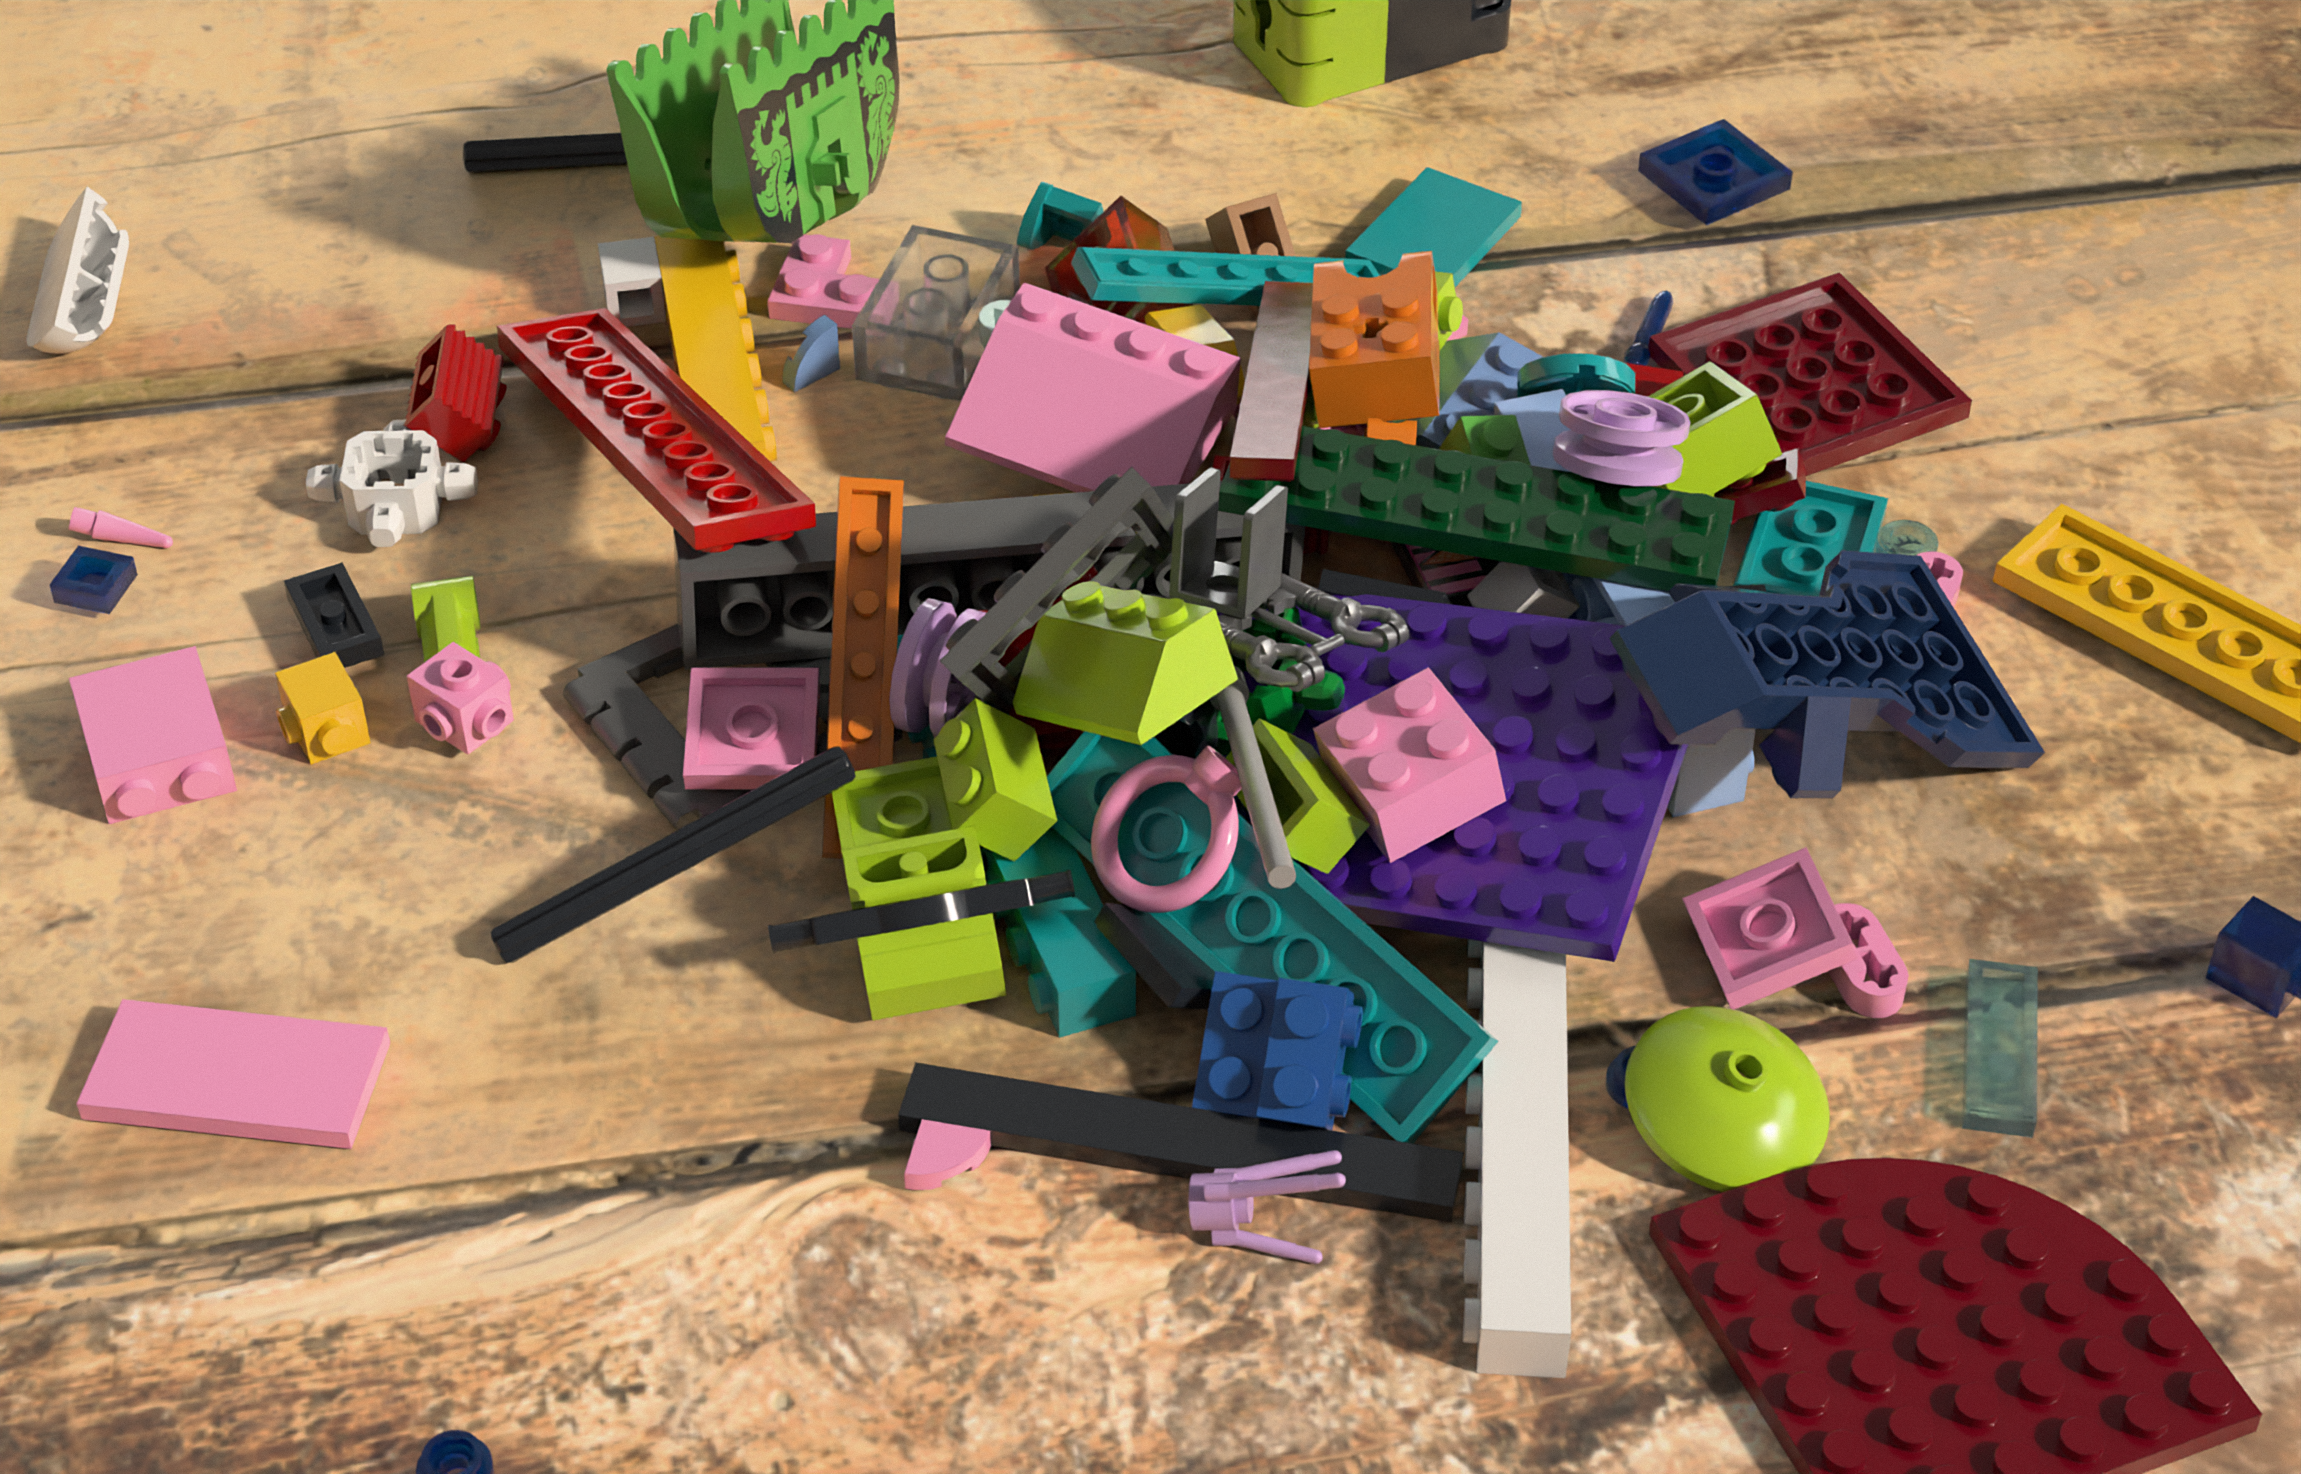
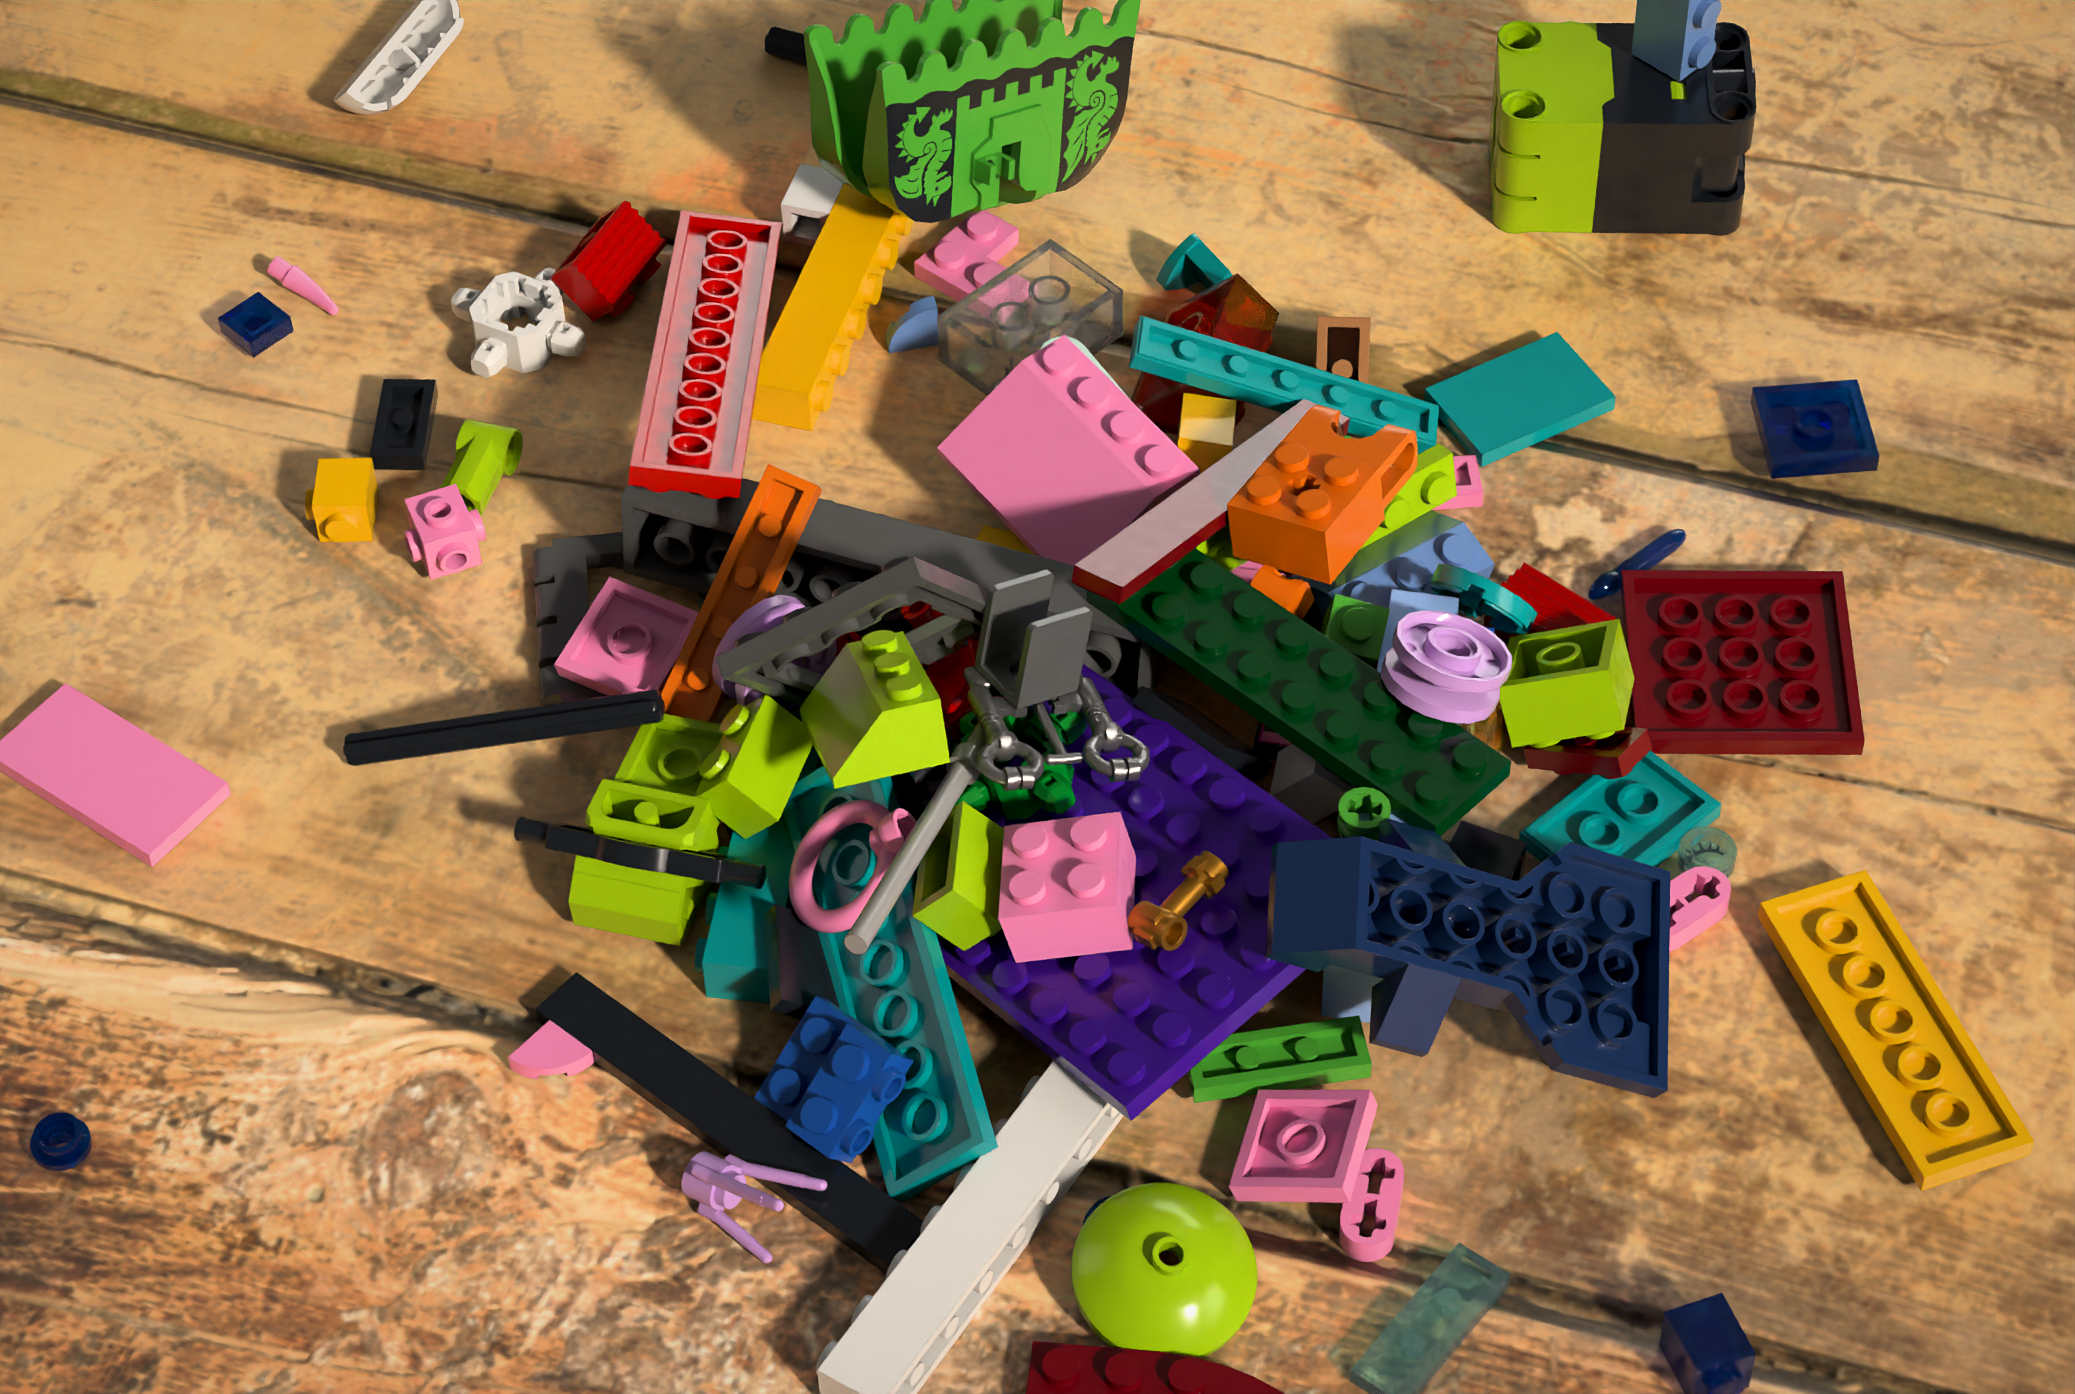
camera: 30 degrees right, 5 degrees up
(152, 734) = (214, 474): bright pink brick -> none
(1530, 759) = (1164, 924): none -> pearl gold bar
(1636, 595) = (1362, 800): none -> bright green bush
(1695, 857) = (1282, 1059): none -> bright green plate

